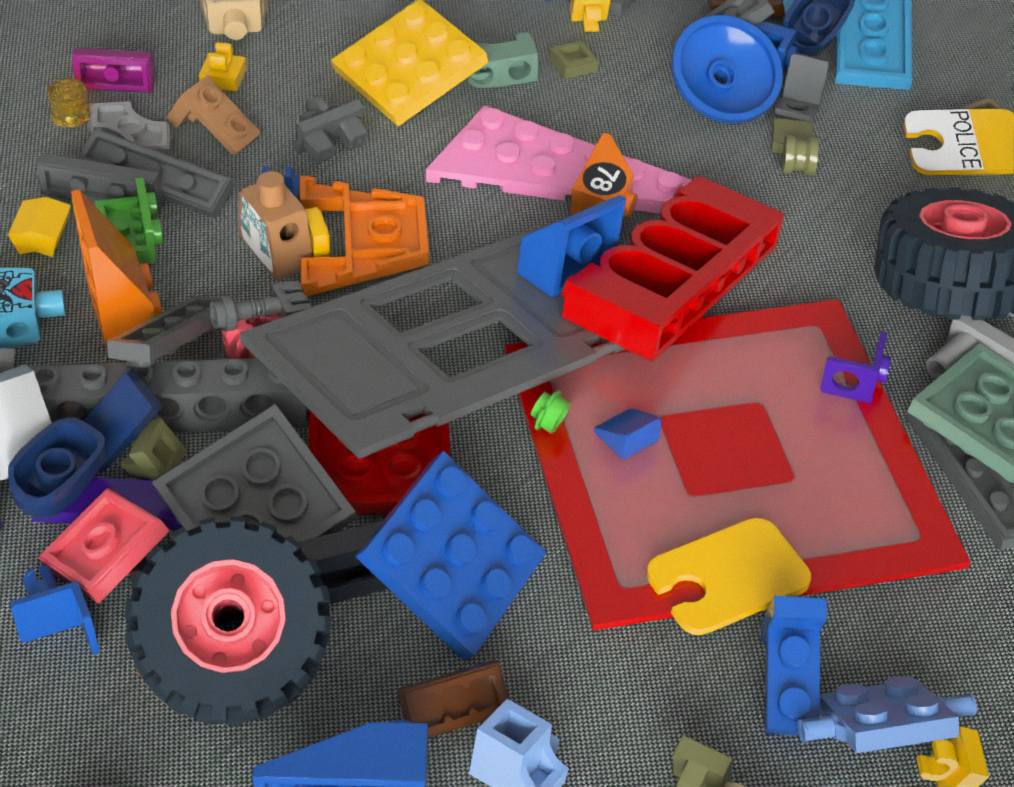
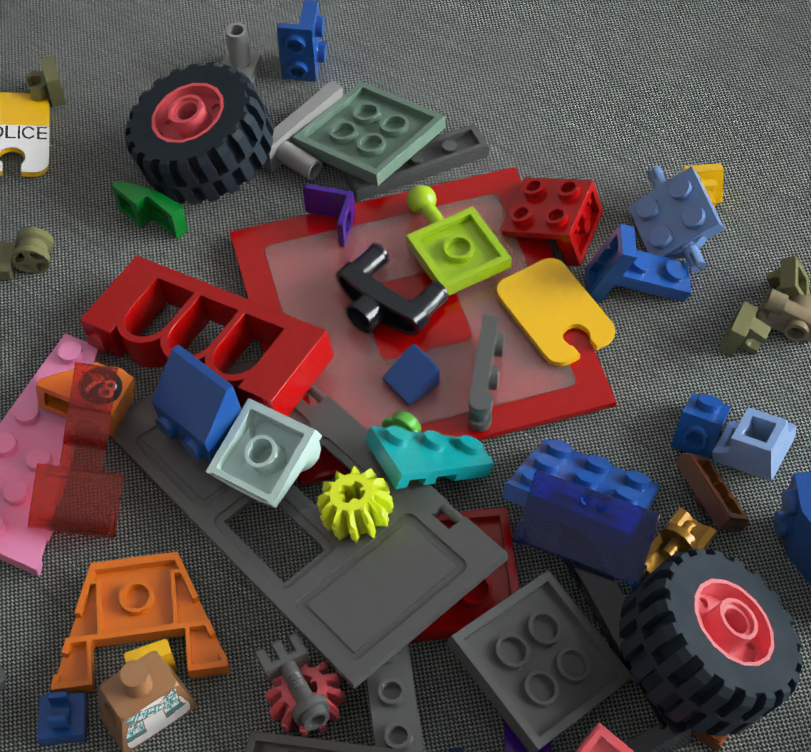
camera: 90 degrees left, 10 degrees up
(377, 646) = (678, 536): none -> pearl gold hips
(386, 508) = (604, 541): none -> clear blue door
(435, 338) = (355, 504): none -> neon yellow gear
(496, 173) = (77, 493): none -> clear red plate
(506, 414) = (427, 455): none -> teal wing
(514, 287) = (264, 453): none -> light aqua slope
(564, 705) = (700, 425): none -> blue bracket
(624, 484) = (485, 374): none -> dark grey plate
(728, 399) = (378, 304): none -> black connector
(817, 480) = (454, 248): none -> lime plate
(863, 240) = (146, 204): none -> green slope
(881, 592) = (558, 211): none -> red bracket

